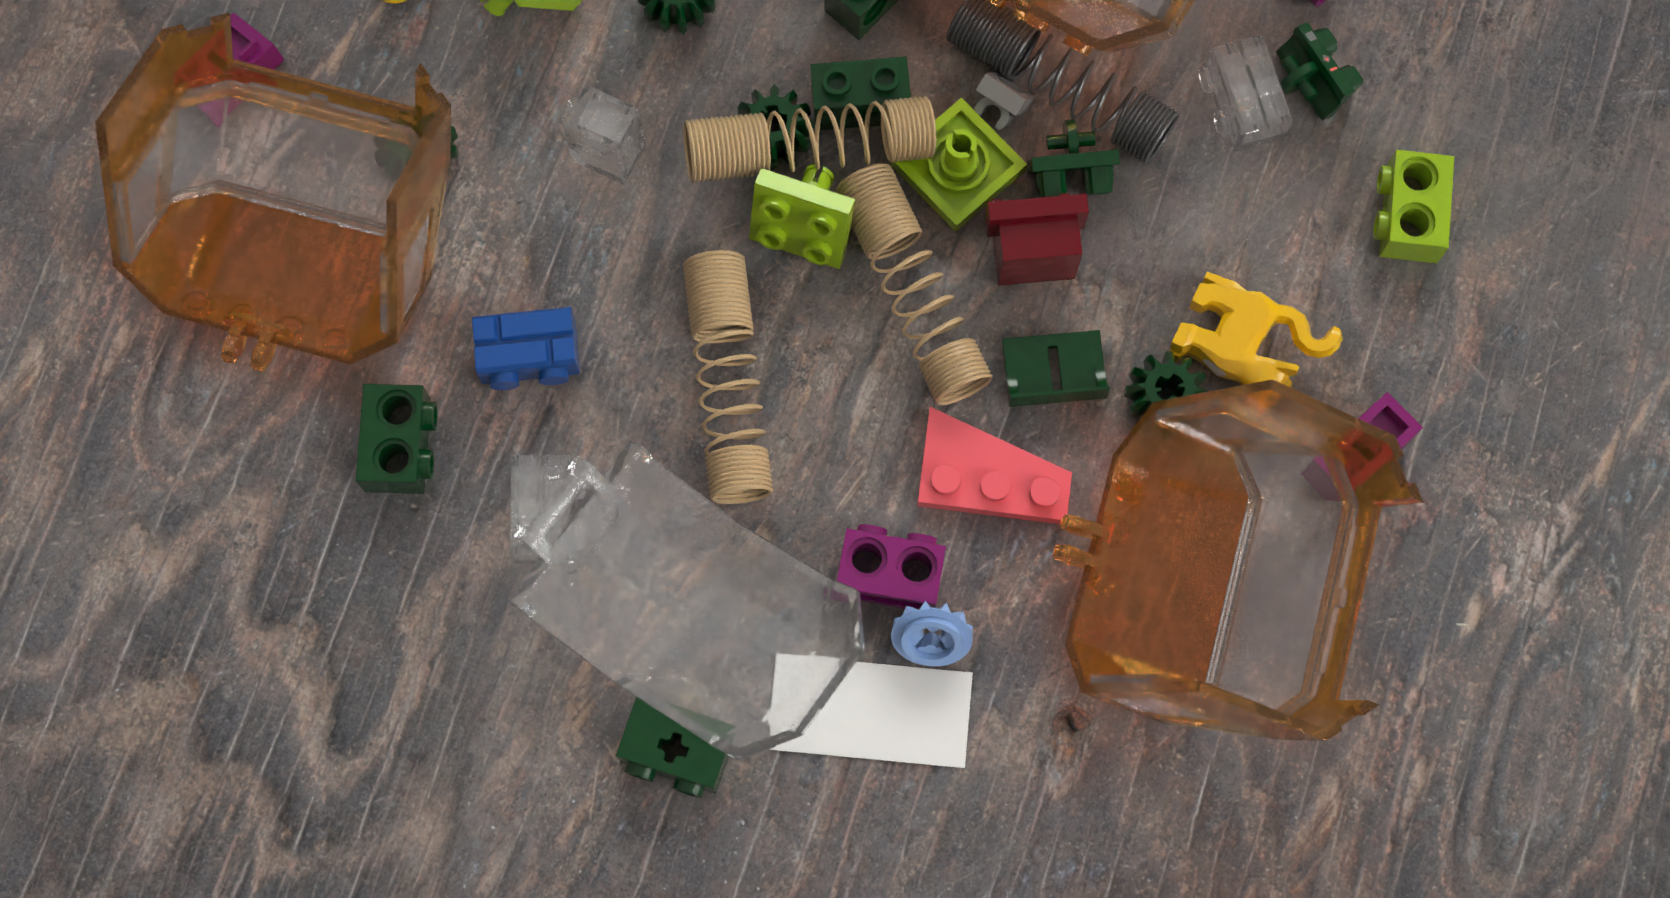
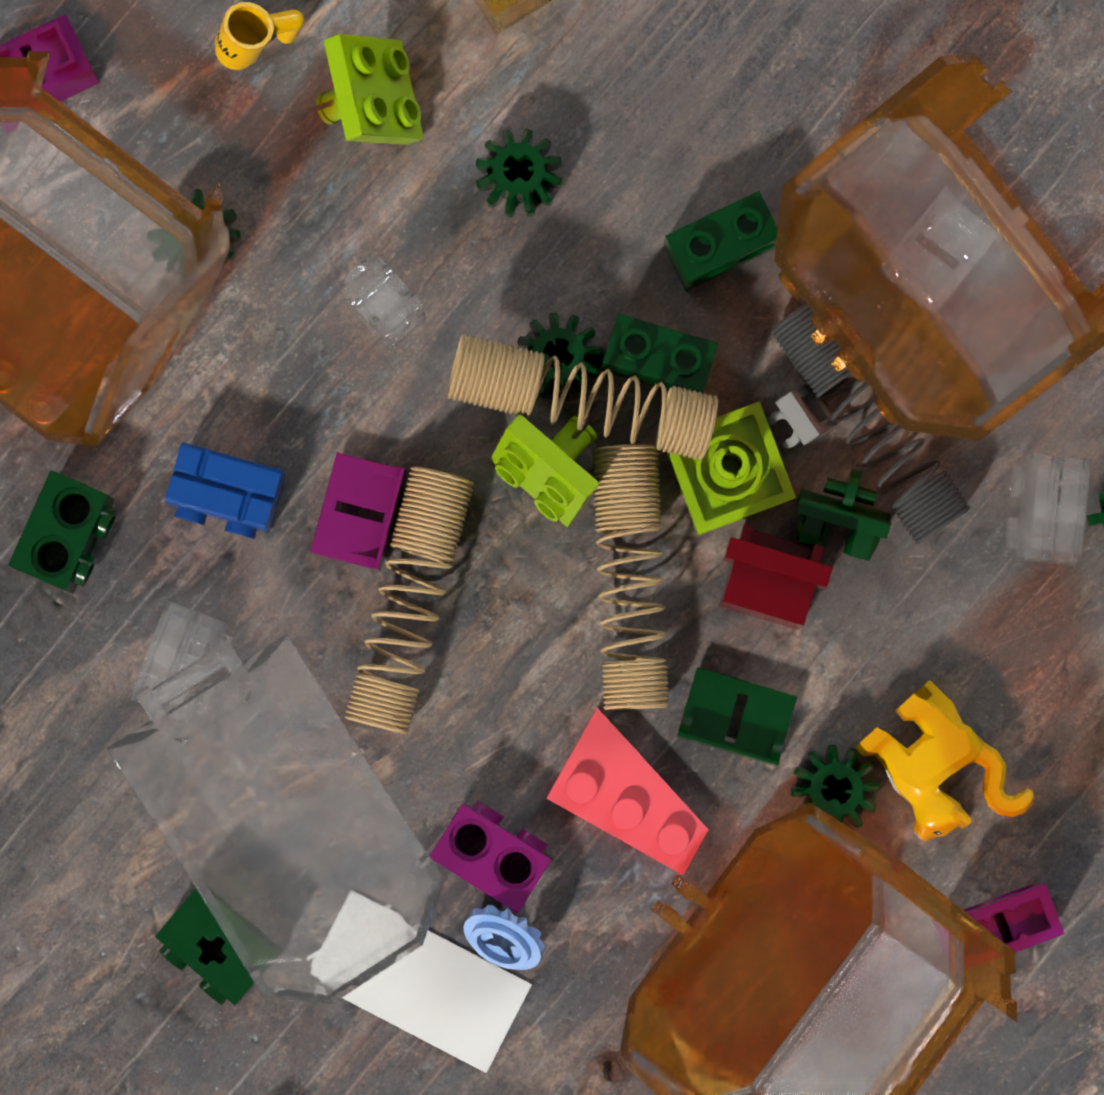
camera: 25 degrees right, 10 degrees up
(645, 300) = (368, 487): none -> magenta piece

